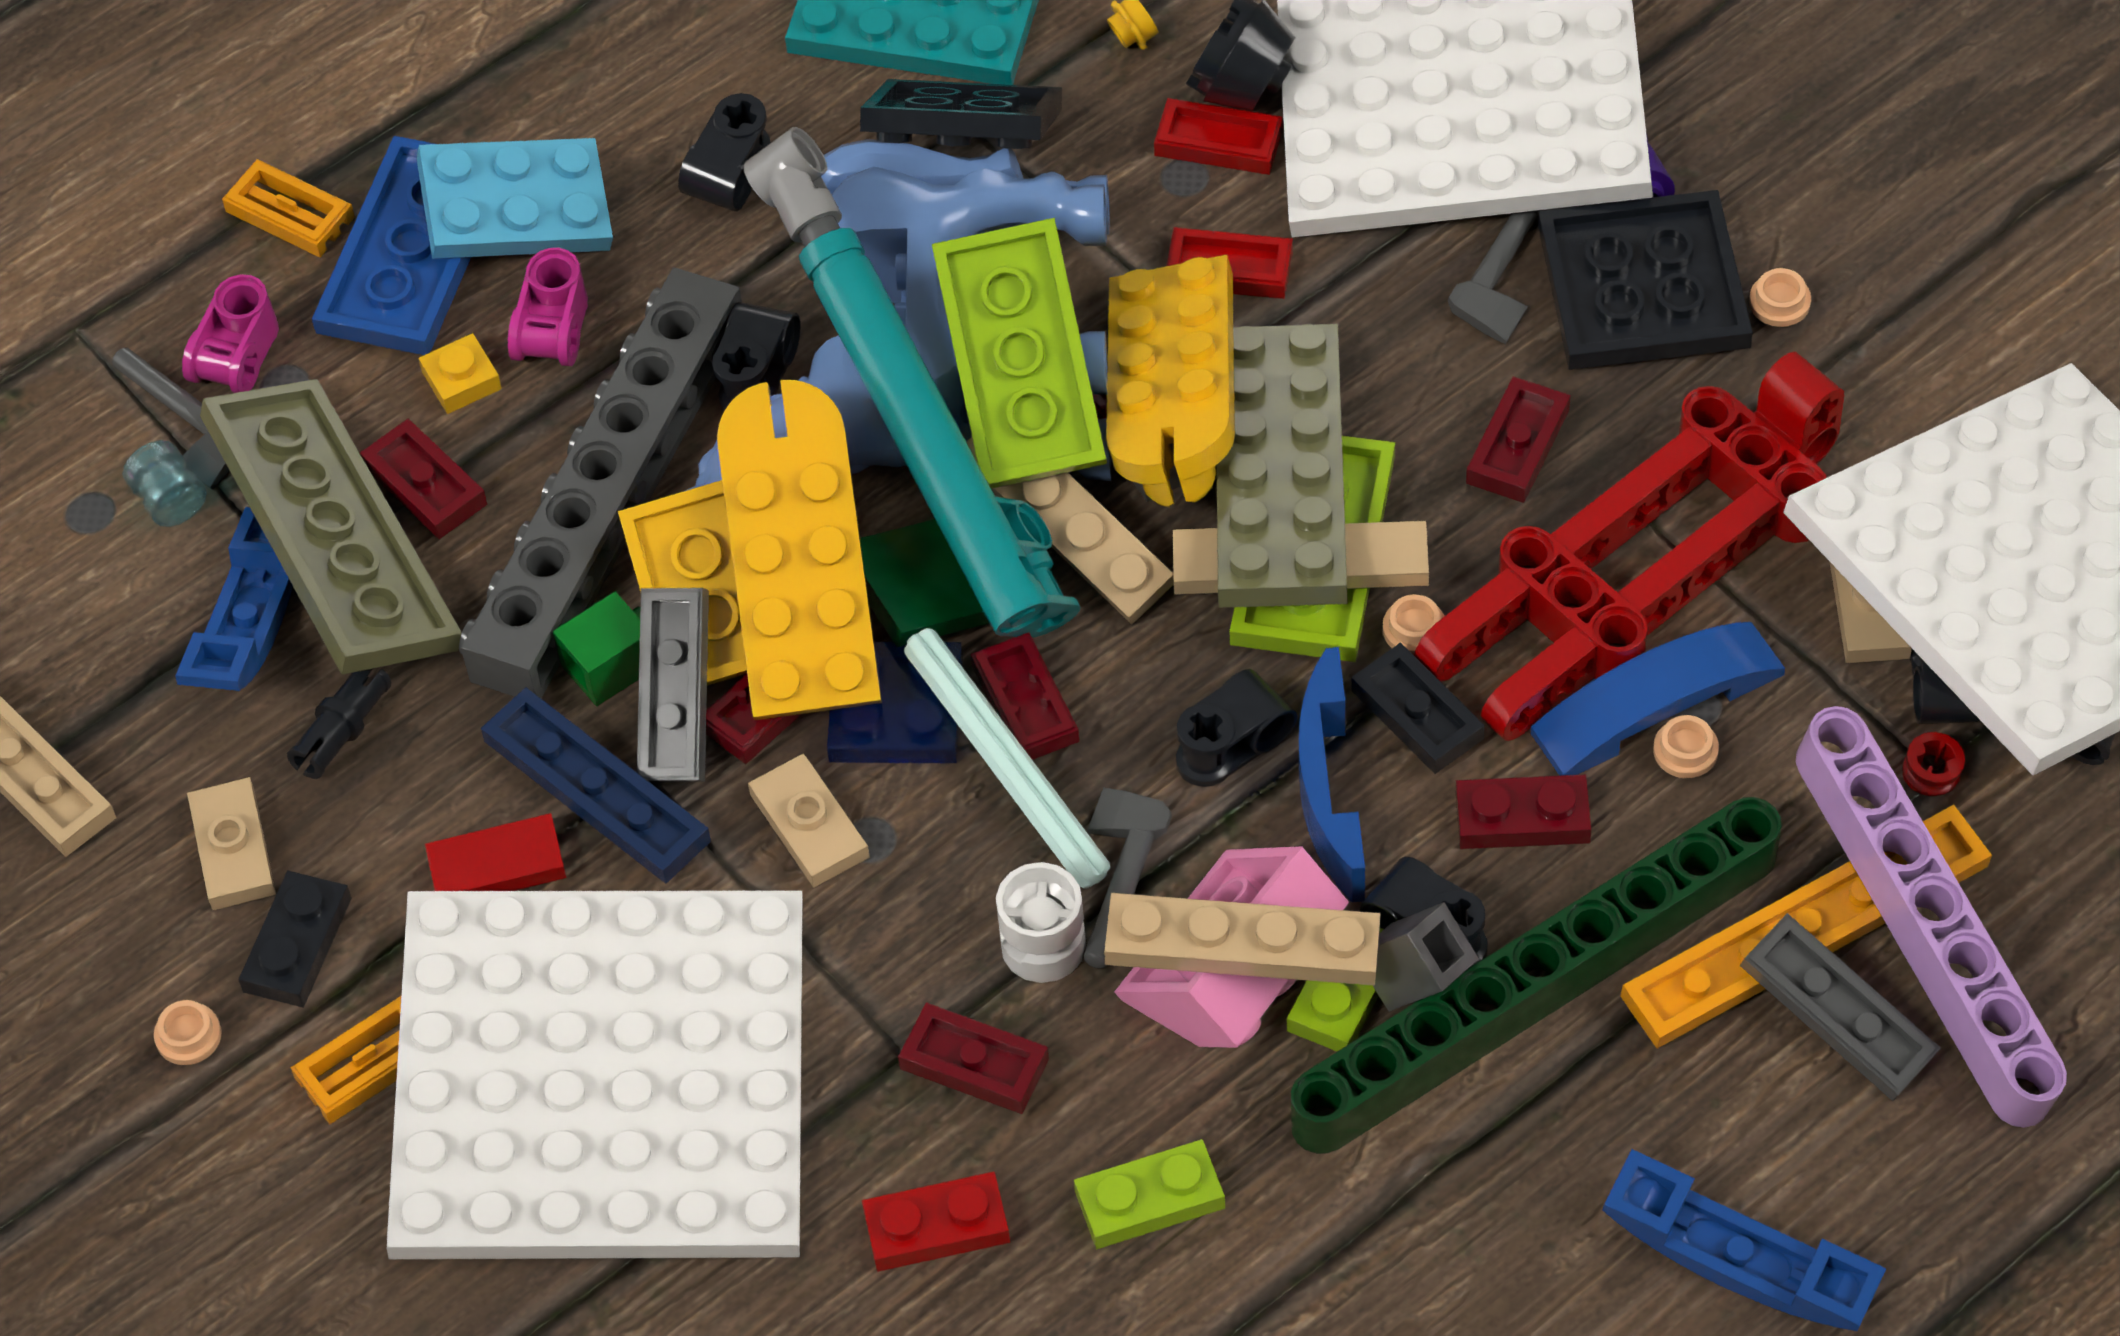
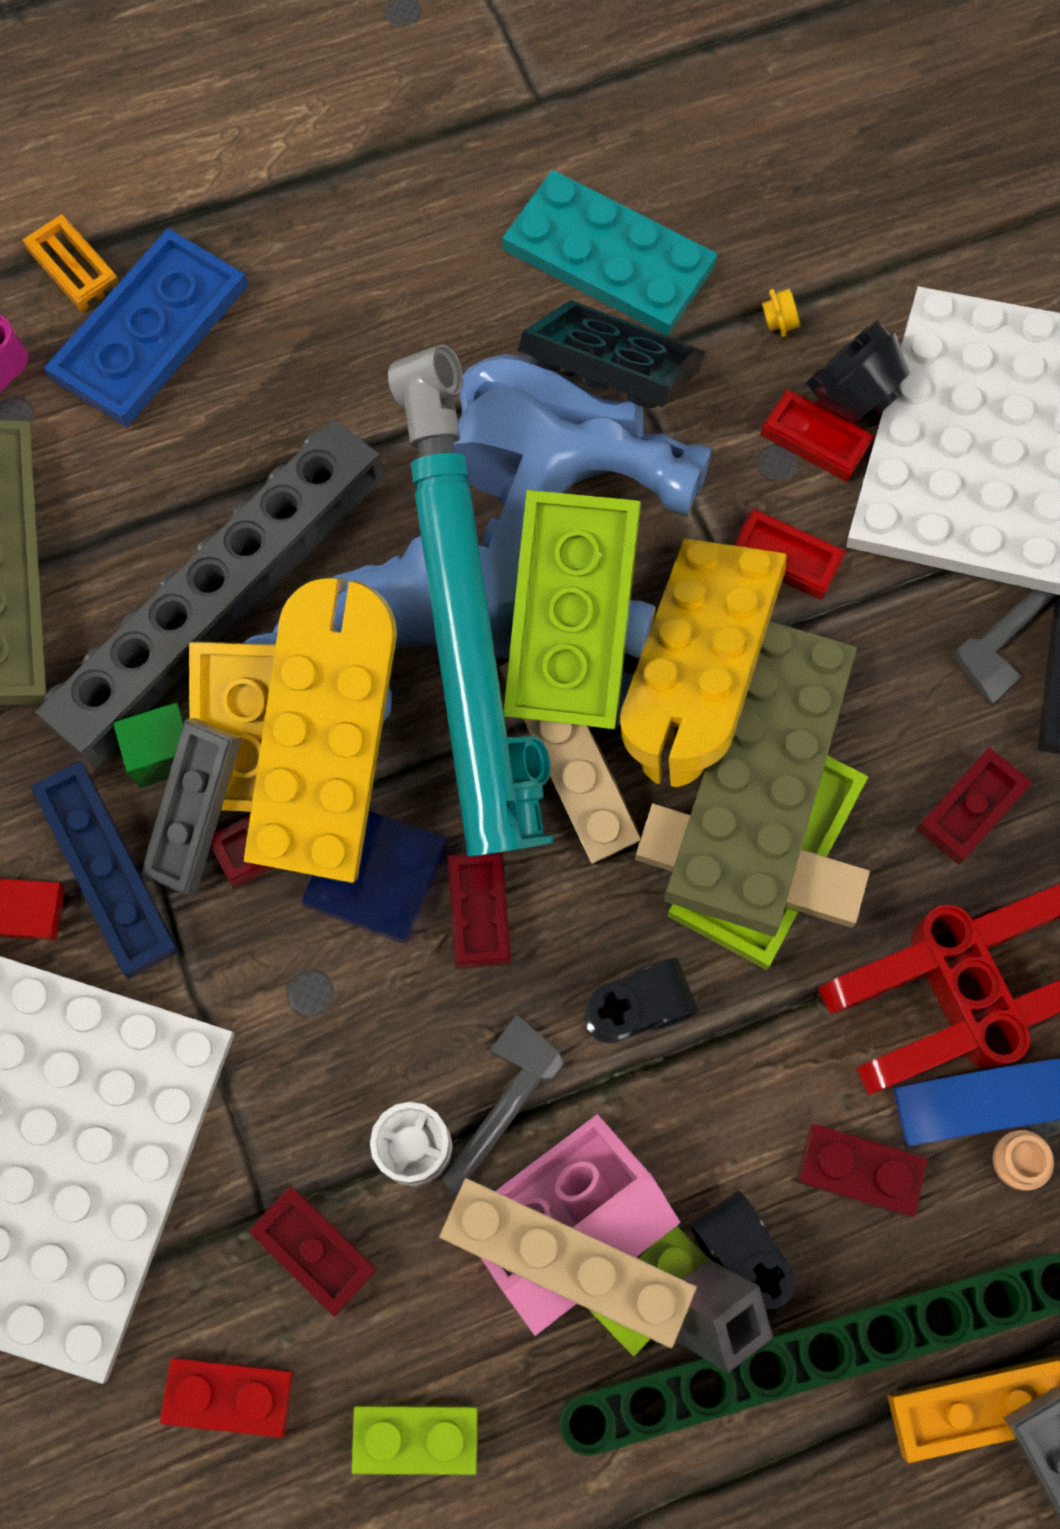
camera: 15 degrees right, 15 degrees up
(424, 478) = (77, 538): dark red plate -> none
(460, 373) = (144, 451): yellow plate -> none
(513, 197) = (236, 312): medium azure plate -> none
(546, 317) = (227, 429): dark pink piece -> none
(716, 161) = (419, 321): black piece -> none
(755, 349) = (373, 516): black piece -> none
(808, 820) = (264, 961): tan plate -> none
(917, 583) = (418, 774): dark green tile -> none
(1007, 758) = (441, 970): light aqua axle -> none
(1339, 834) = (695, 1154): blue slope -> none
(1410, 620) = (827, 954): light nougat plate -> none
(1417, 708) = (804, 1039): black plate -> none

